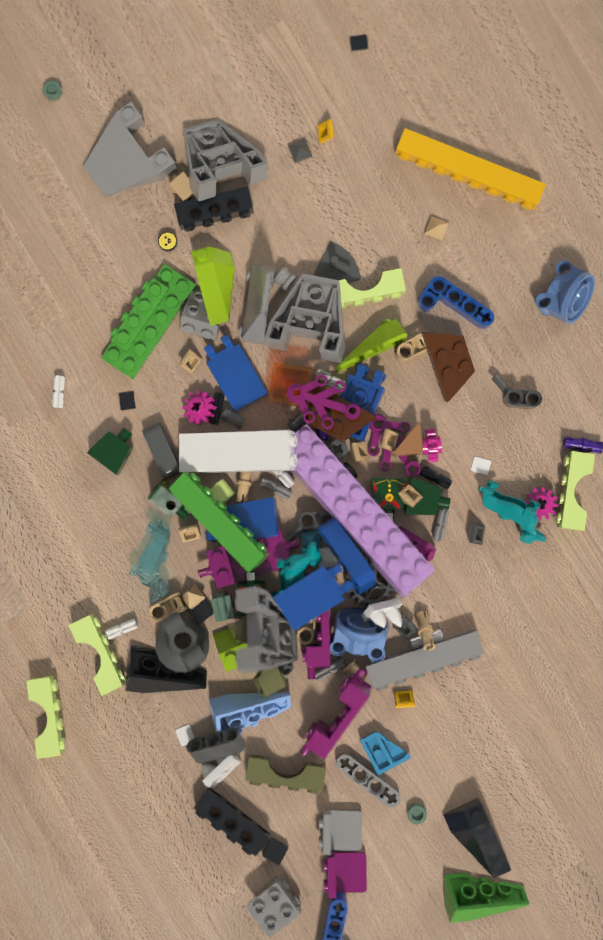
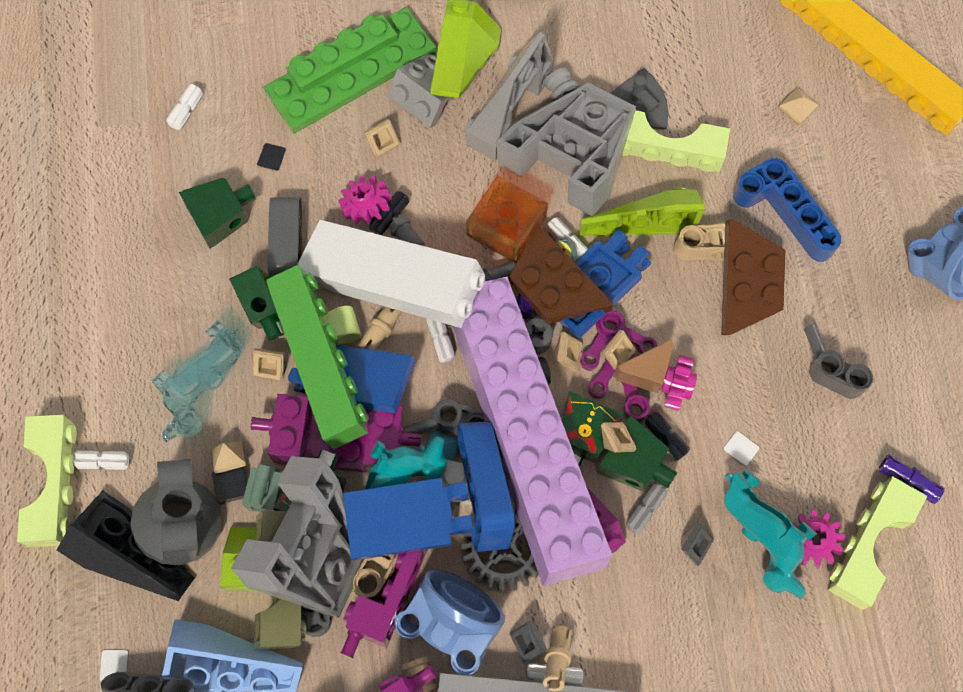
camera: 20 degrees right, 15 degrees down
(168, 607) = (192, 448): tan piece -> none
(235, 375) = (435, 180): blue tile -> none
(278, 489) = (419, 349): light grey piece -> none
(319, 400) = (543, 247): magenta plant -> none
(335, 666) = (390, 656): light grey piece -> none
(379, 611) = (504, 594): white tile -> none

